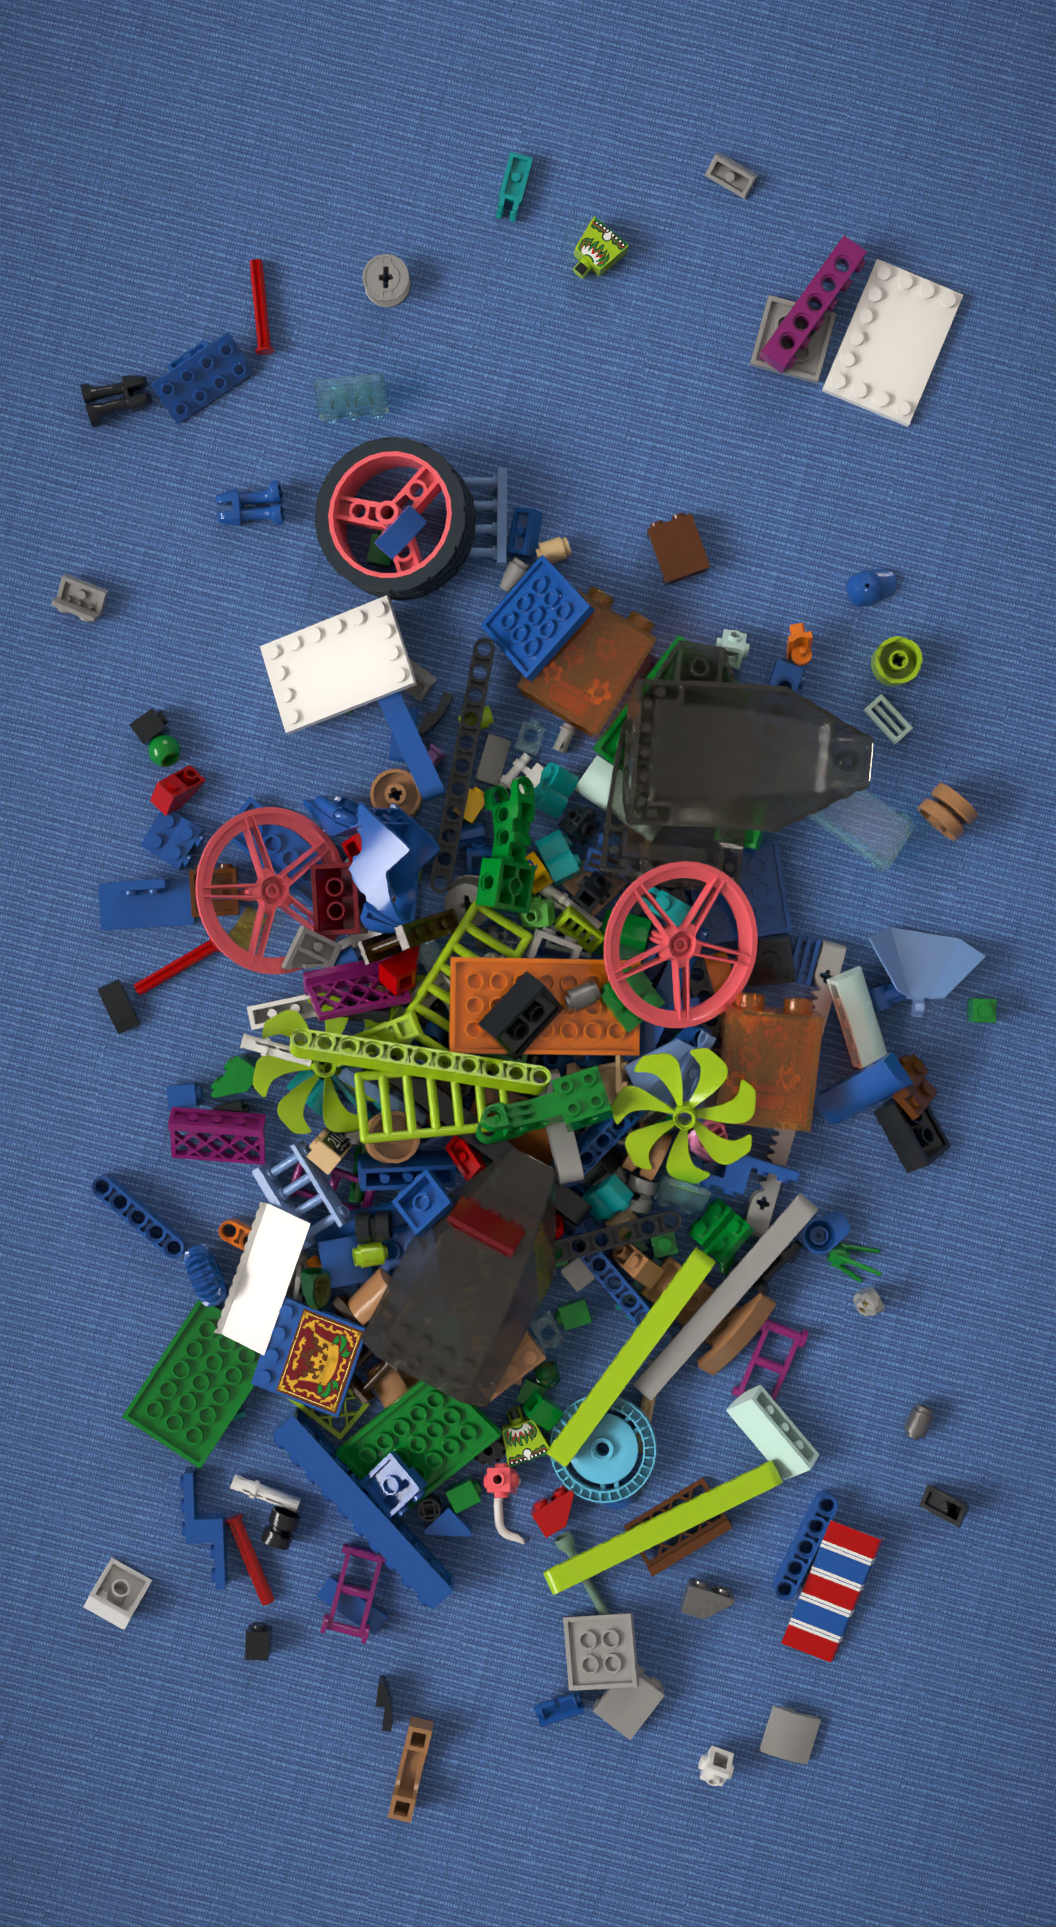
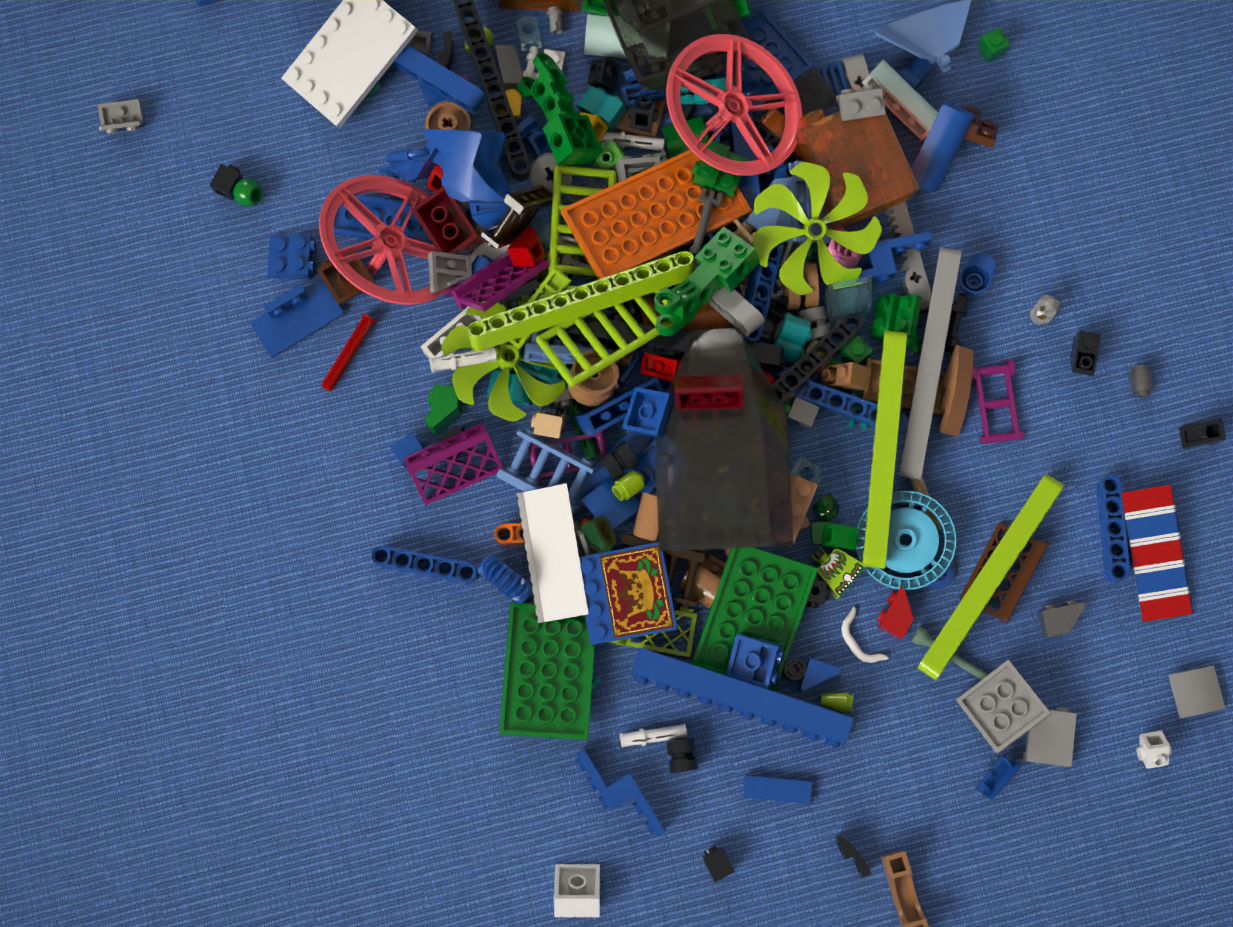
camera: 30 degrees left, 10 degrees down
(118, 1006) = (317, 408): black slope -> none
(176, 789) = (273, 217): red slope -> none
(242, 932) = (383, 309): clear yellow slope -> none
(250, 1559) = (672, 799): red axle -> none
(363, 1631) = (799, 800): magenta piece -> none
(453, 1558) = (838, 701): none -> lime cone
(464, 1493) = (816, 642): green brick -> none
(509, 1481) = (845, 609): coral brick -> none
(521, 1015) = (641, 222): black slope -> none
(554, 789) = (569, 57): teal brick -> none
(573, 1314) = (818, 448): green brick -> none
(577, 917) = (632, 146): lime slope -> none
(582, 996) = (681, 184): flat silver brick -> none
(602, 1025) = (708, 202): none -> dark grey hinge
(773, 1432) = (1032, 452): light aqua brick -> none
(801, 1018) = (861, 104): none -> light grey bracket
(840, 1255) = (1000, 286): green plant -> none
(880, 1367) = (1085, 352): none -> black slope
(914, 1141) = (996, 165): black slope -> none

